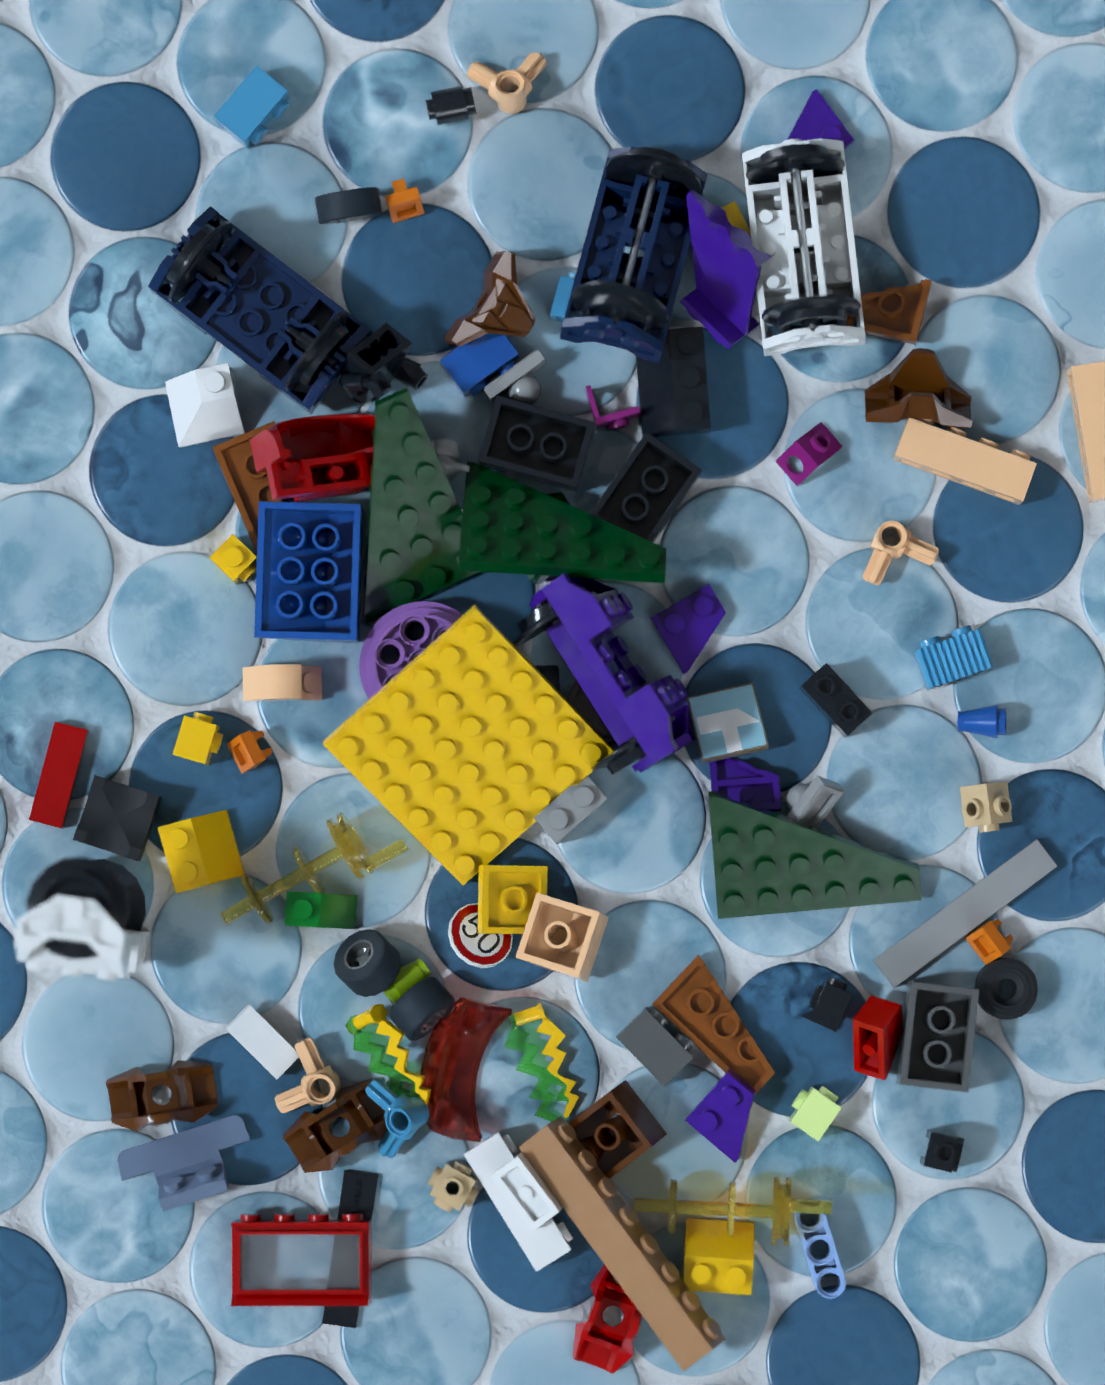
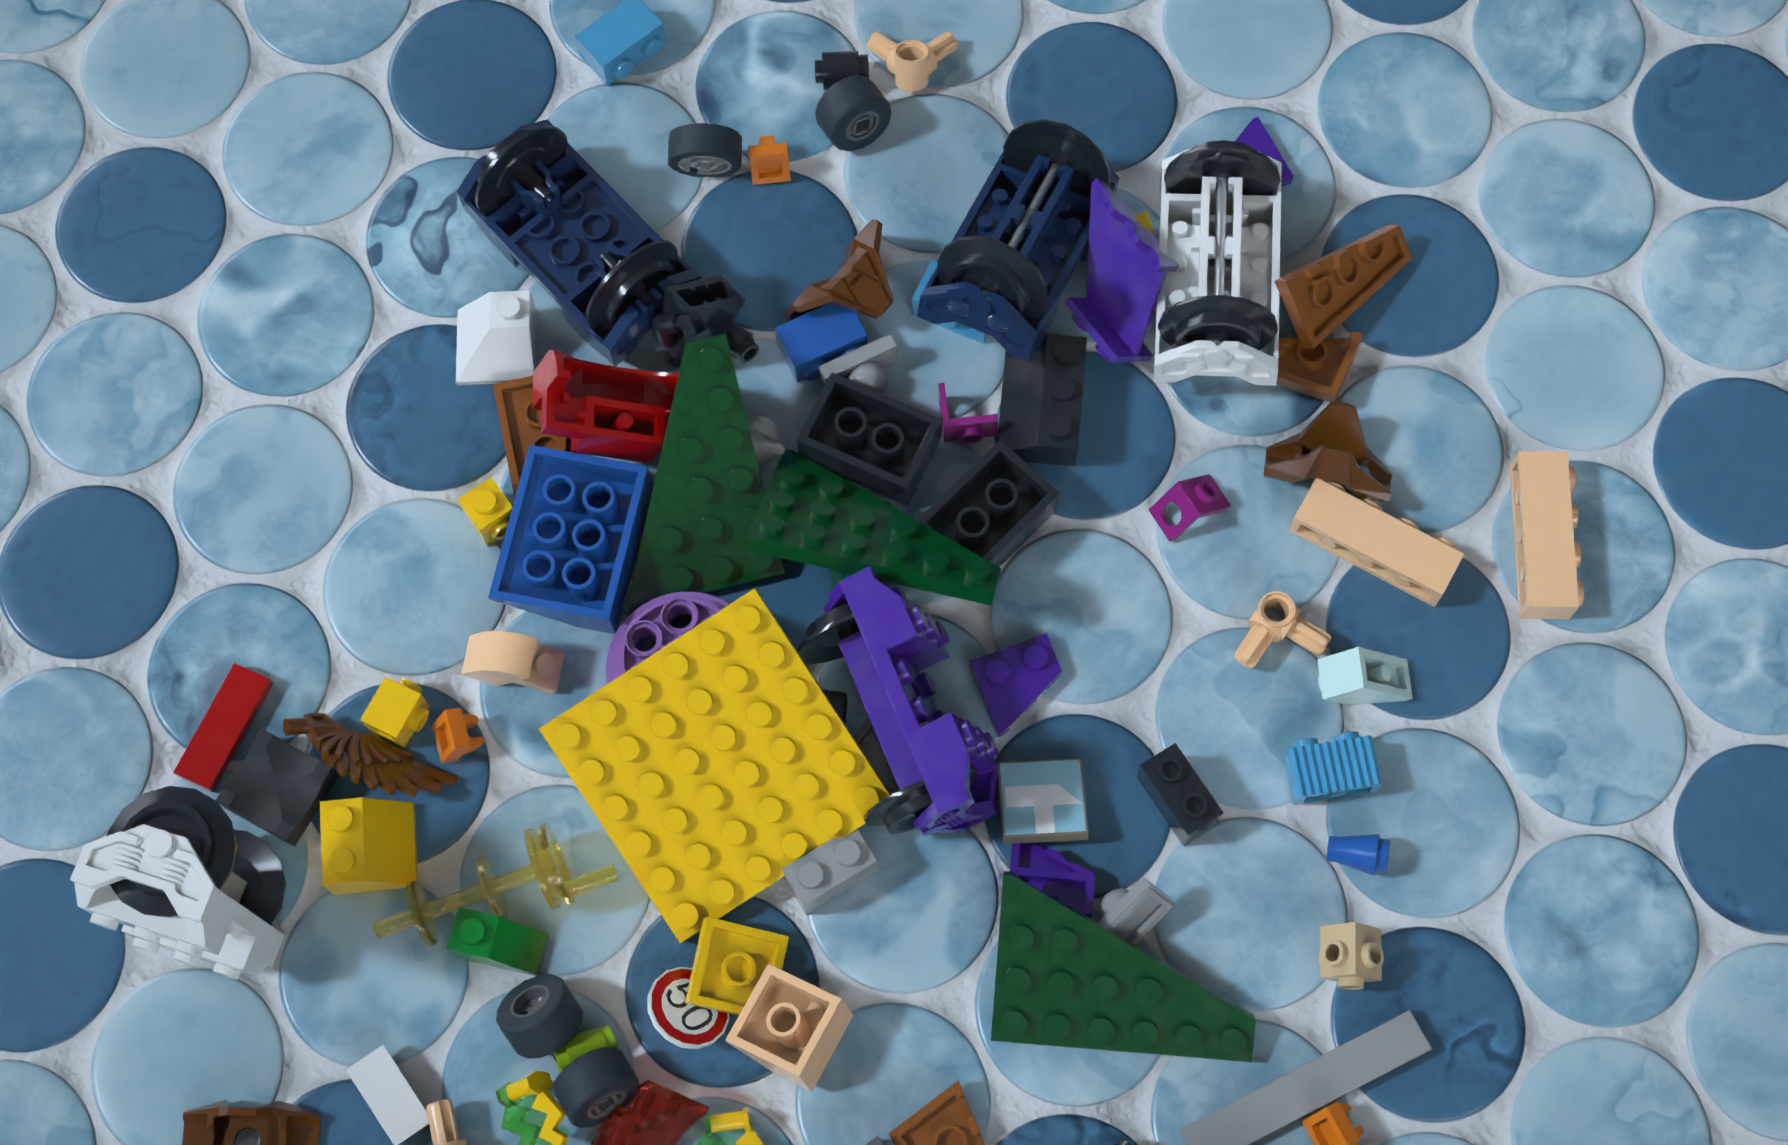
camera: 10 degrees right, 15 degrees down
(184, 781) = (367, 757): none -> reddish brown animal
(468, 147) = (853, 113): none -> black wheel
(905, 241) = (1340, 282): none -> dark orange wing
(969, 578) = (1364, 677): none -> light aqua slope

